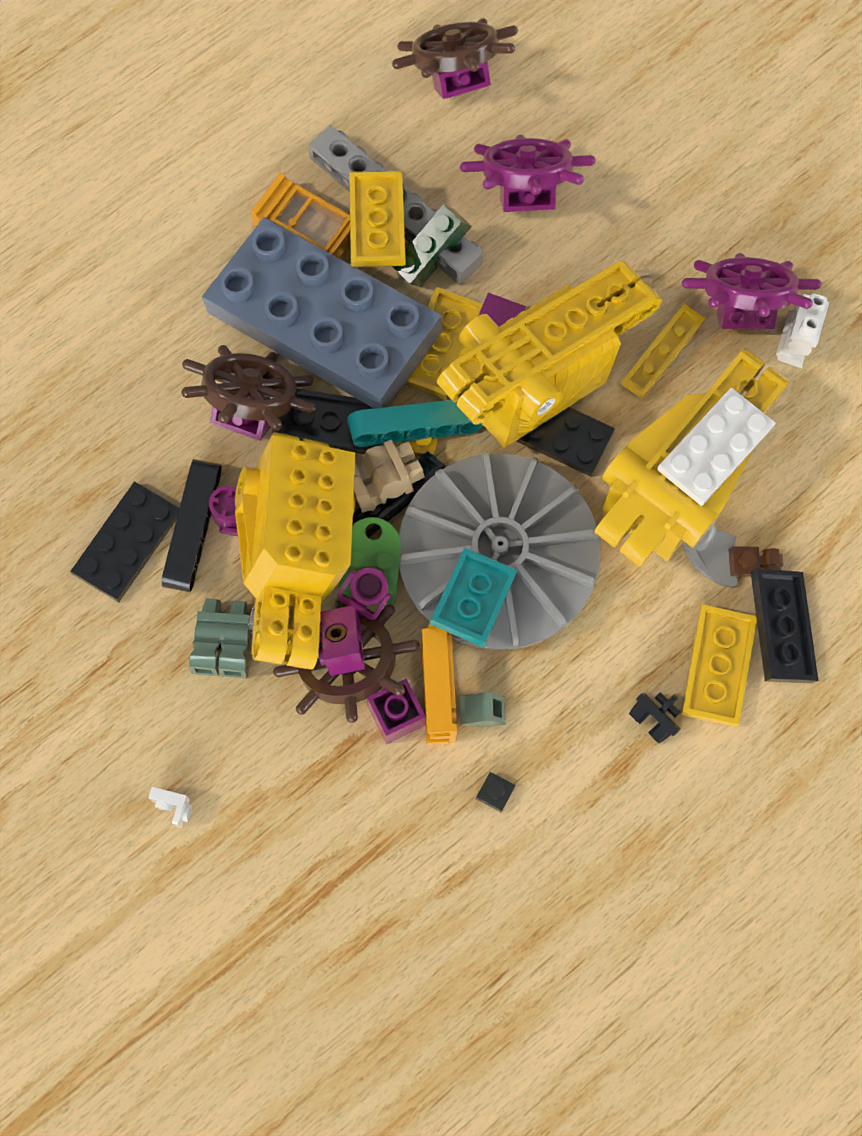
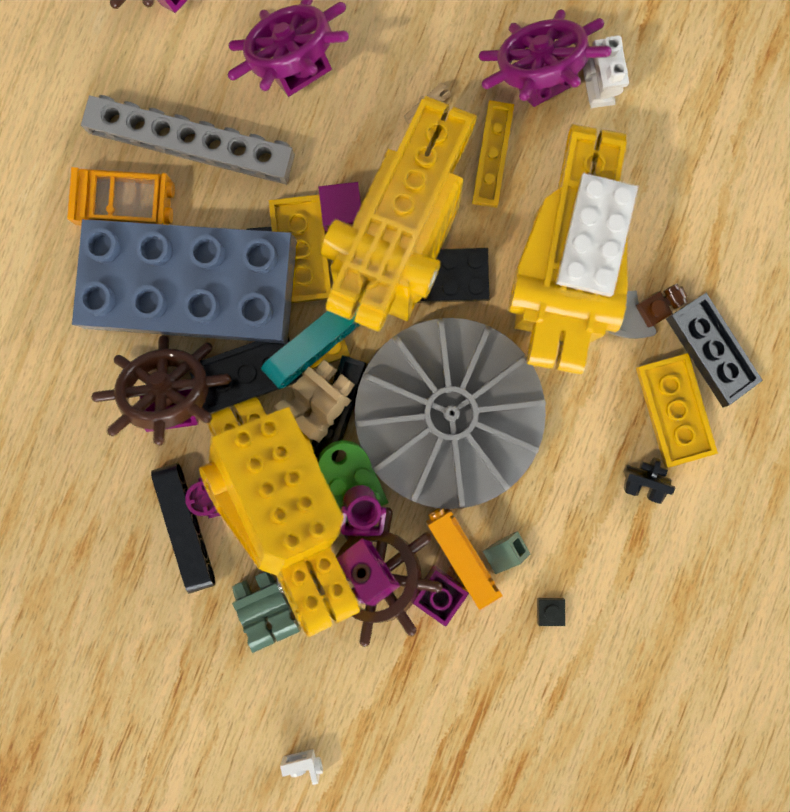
camera: 30 degrees left, 15 degrees up
(126, 541) = (137, 570): black plate -> none
(377, 219) = (183, 168): yellow plate -> none
(442, 230) = (246, 153): arch -> none
(473, 597) = (456, 476): teal plate -> none

